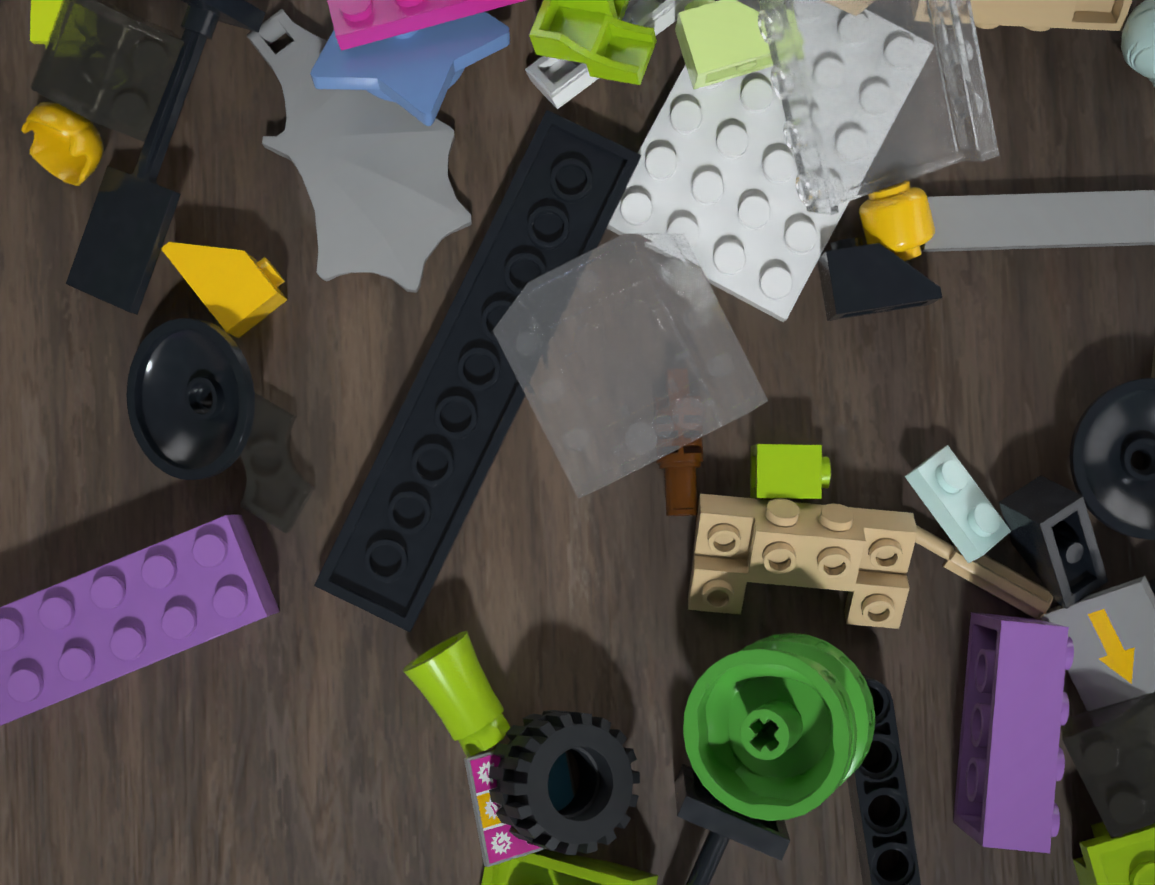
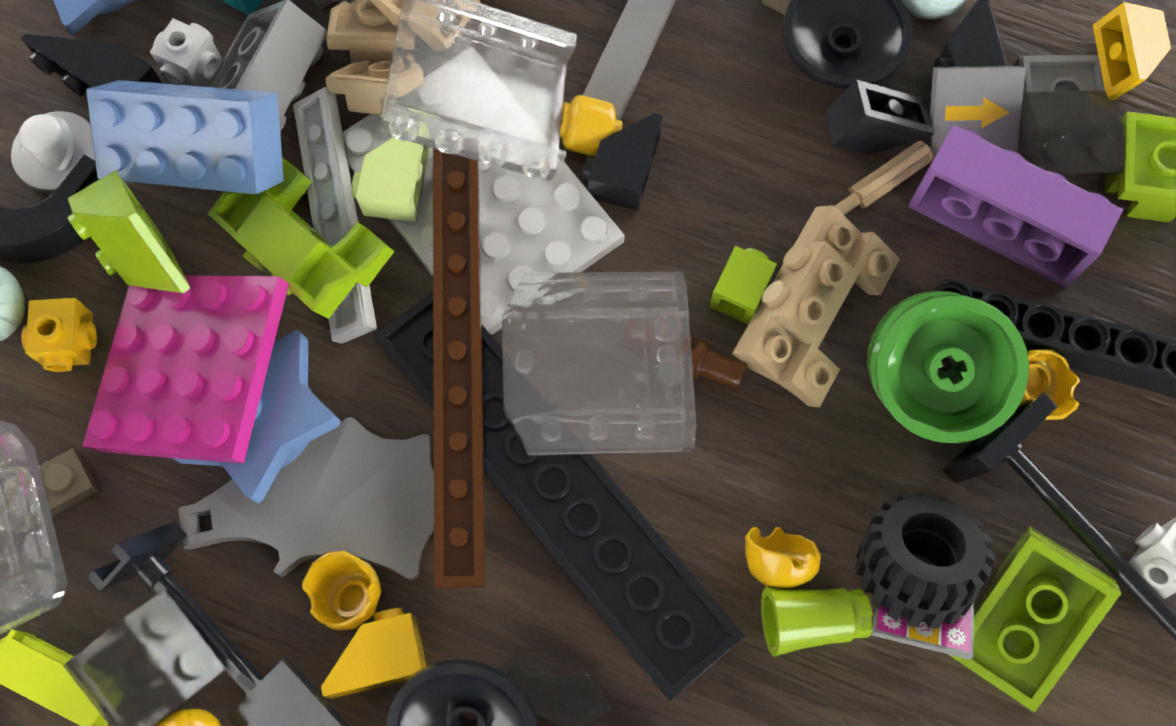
camera: 60 degrees left, 15 degrees down
(272, 214) = (342, 590): none -> yellow hair
(505, 636) = (781, 558): none -> yellow hair
(550, 213) = (457, 375): none -> reddish brown plate
(822, 840) = (1051, 374): none -> yellow hair
(958, 504) = (822, 175): light aqua plate -> none

